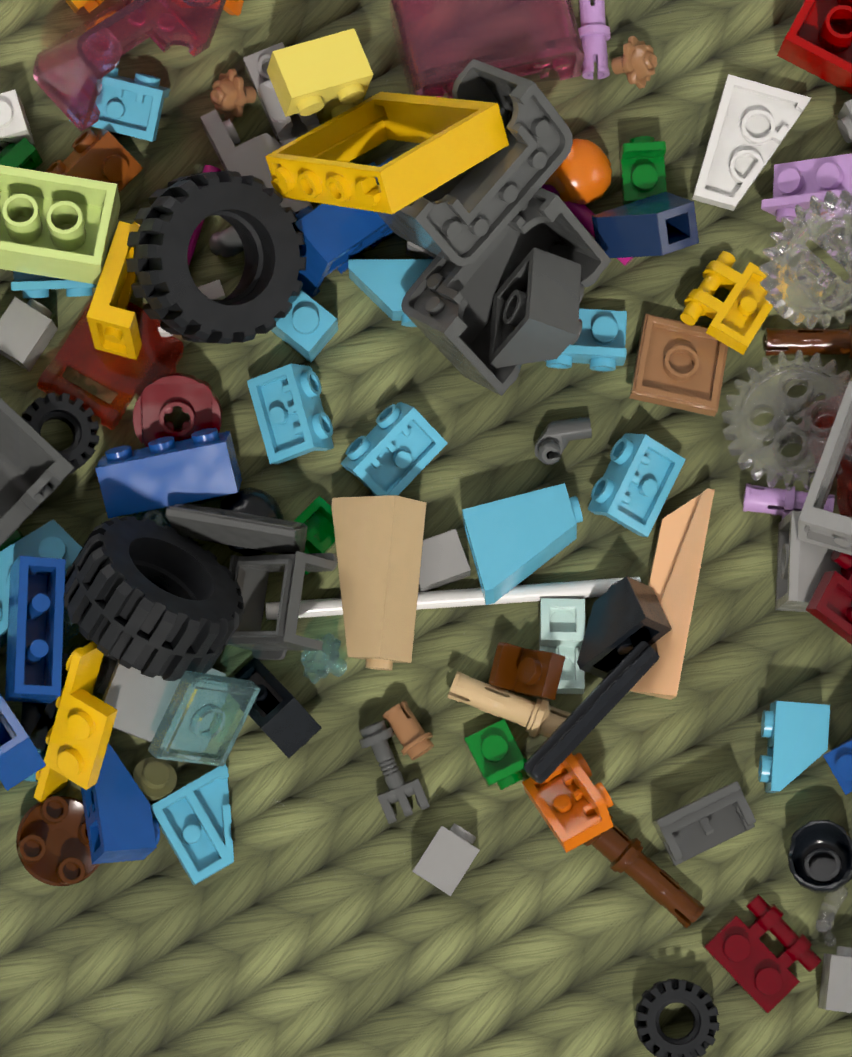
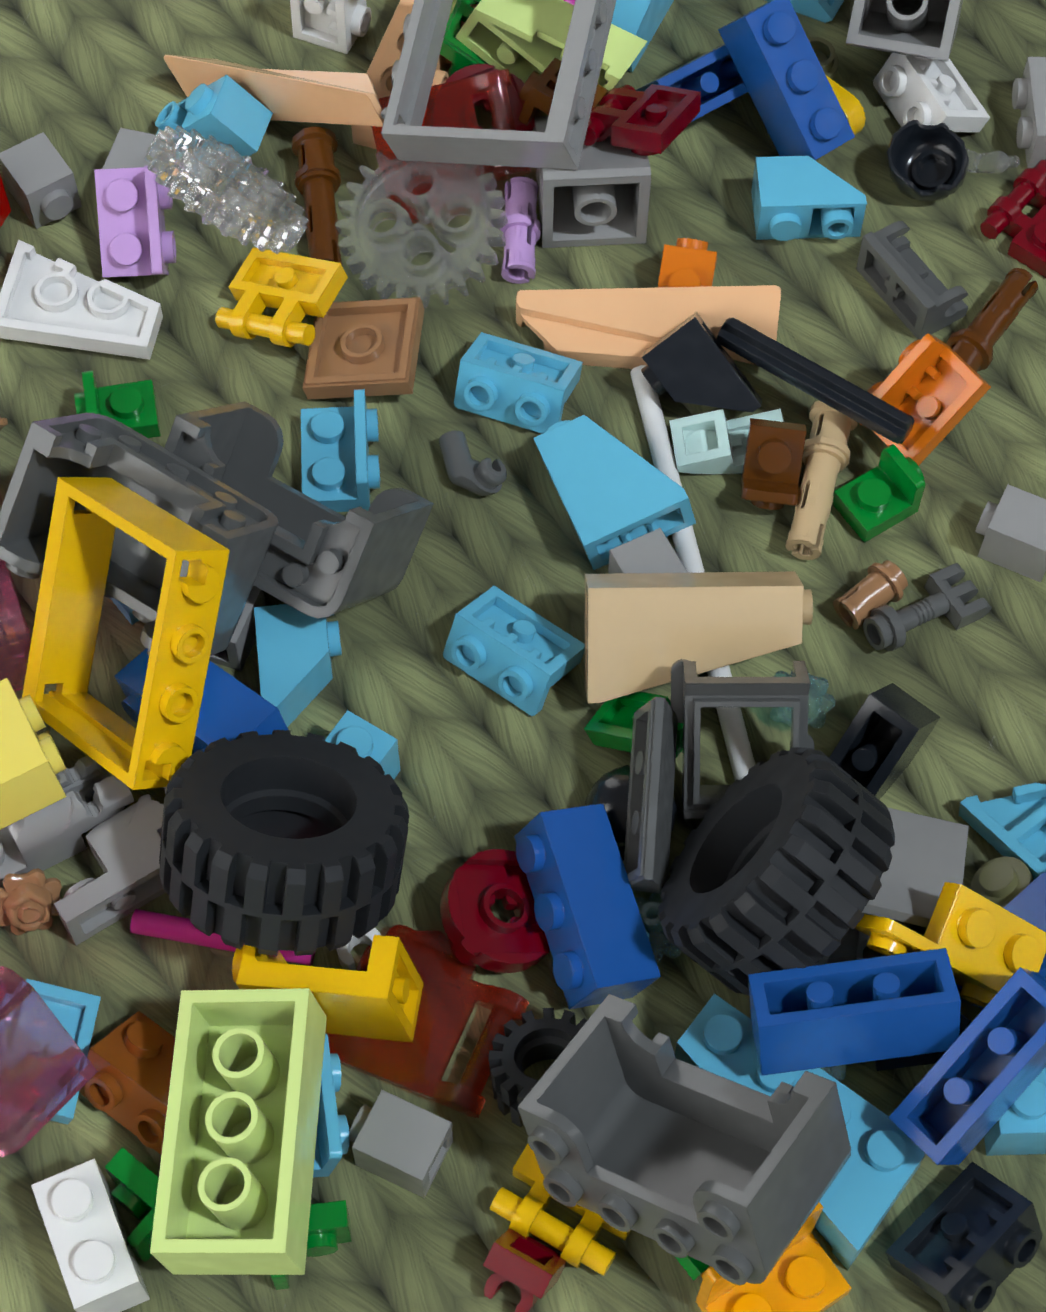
camera: 95 degrees left, 20 degrees down
(204, 719) = (924, 796): clear light blue tile -> none
(290, 412) = (479, 776): medium azure bracket -> none
(536, 311) = (320, 463): dark grey slope -> none
(647, 227) = (191, 369): dark blue slope -> none
(725, 634) = (687, 264): none -> orange bracket

